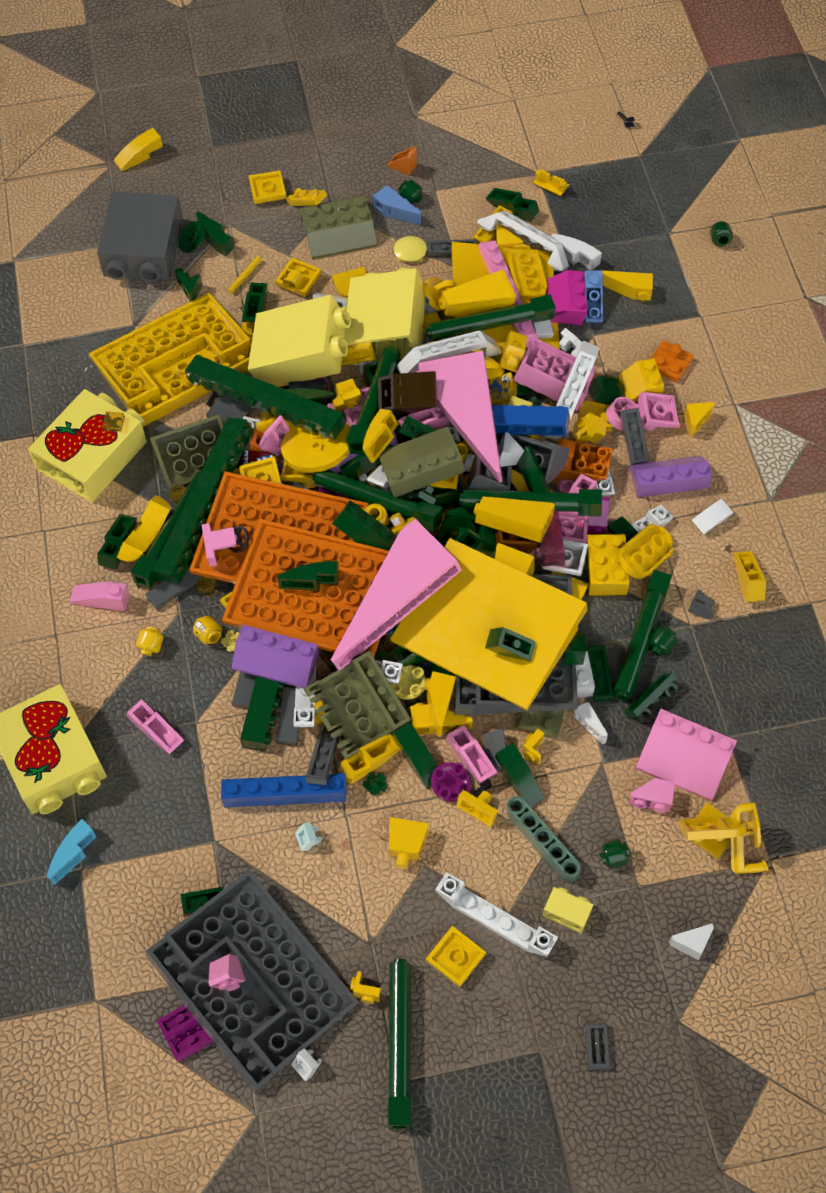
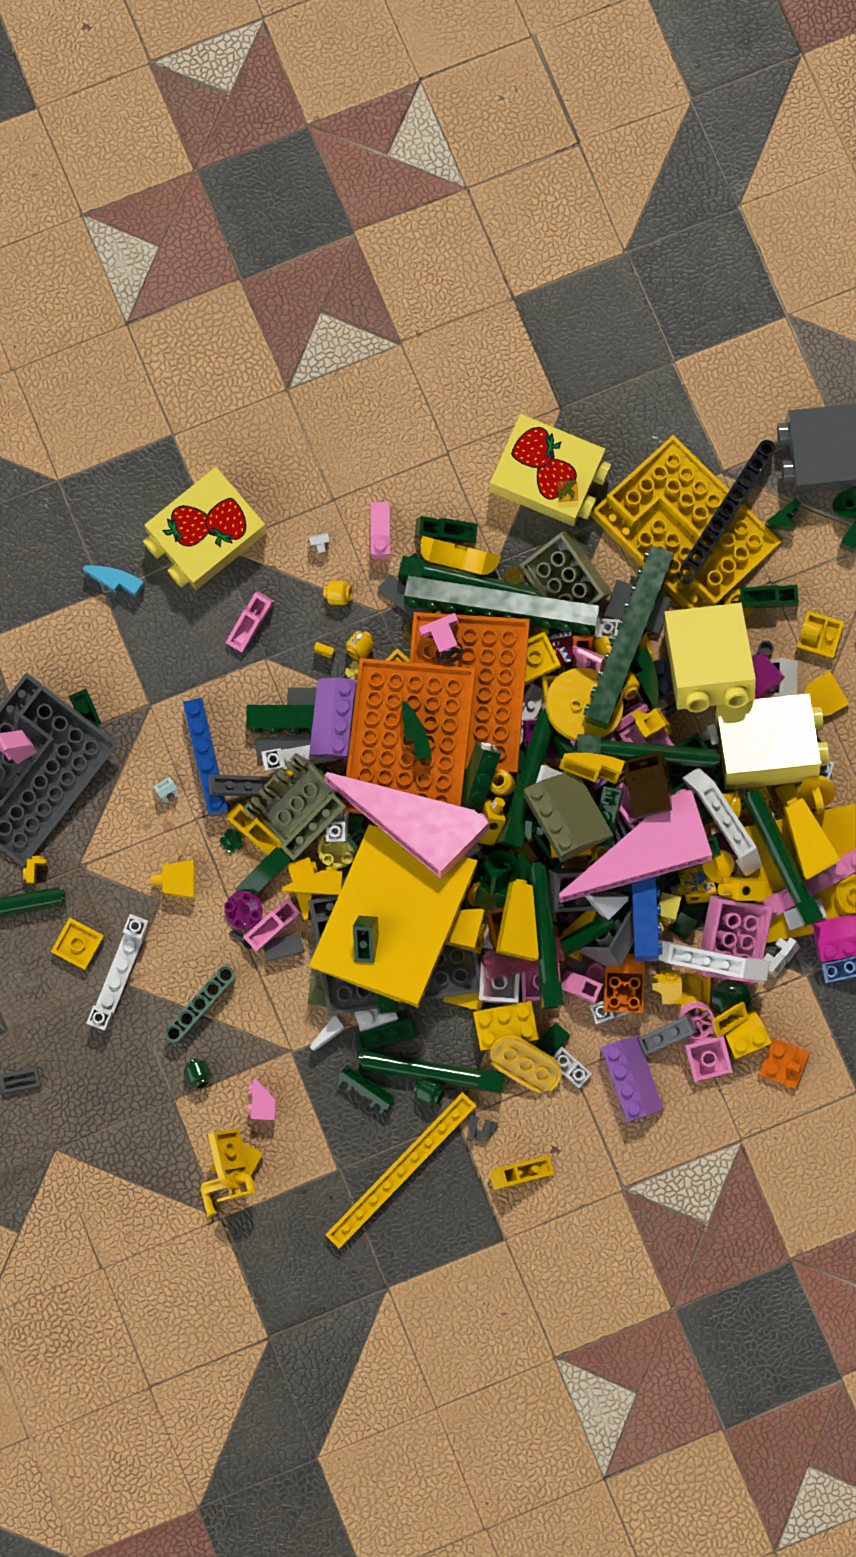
camera: 80 degrees right, 20 degrees up
(93, 650) = (319, 541): none -> white tile
(172, 319) = (723, 519): none -> black beam
(203, 663) = (324, 650): none -> yellow tile
(244, 275) = (814, 574): yellow bar -> none
(359, 353) = (711, 724): yellow tile -> none
(478, 807) = (222, 940): yellow tile -> none
(519, 775) = (257, 973): dark green slope -> none
(531, 744) = (297, 980): yellow bracket -> none
(568, 909) = (137, 1036): light yellow brick -> none
(598, 525) = (557, 1014): magenta slope -> none
(626, 387) = (730, 1019): none -> yellow slope
(686, 754) = (309, 1128): bright pink slope -> none
(692, 941) = (126, 1154): white slope -> none
(696, 415) = (711, 1100): yellow slope -> none
(712, 516) = (585, 1128): white slope -> none
(738, 681) = (400, 1170): none -> yellow plate

